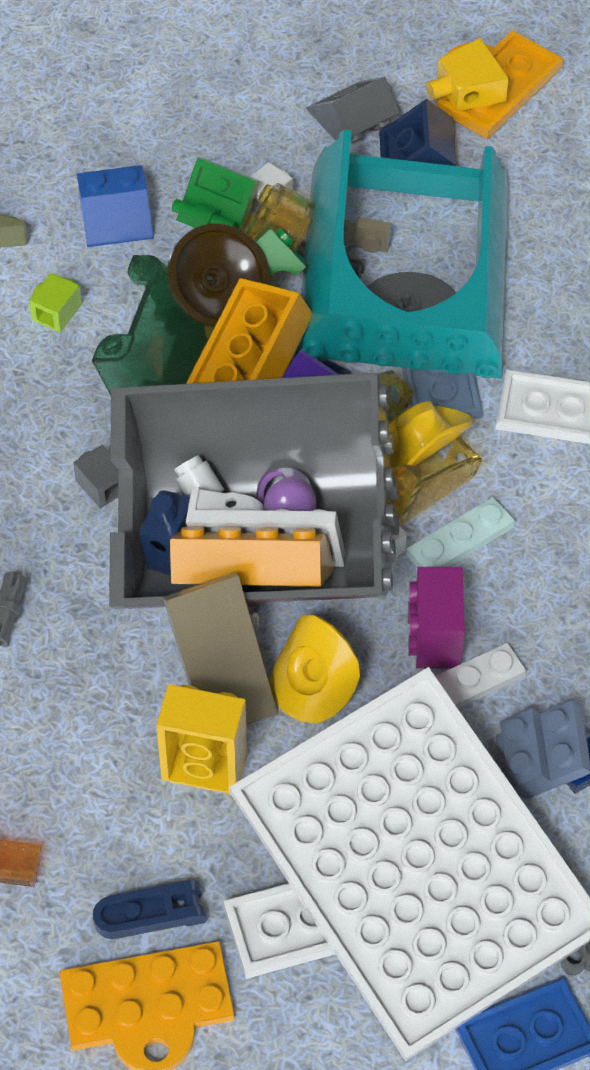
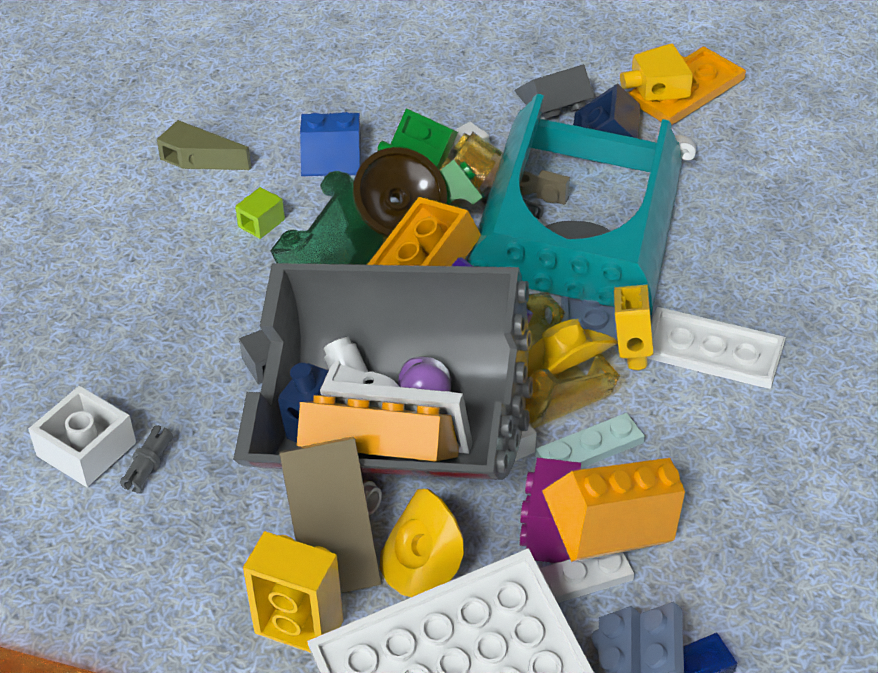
camera: 10 degrees right, 10 degrees down
(492, 405) = (633, 325): none -> yellow torso
(505, 610) = (616, 507): none -> light orange slope
(512, 167) = (687, 147): none -> white piece

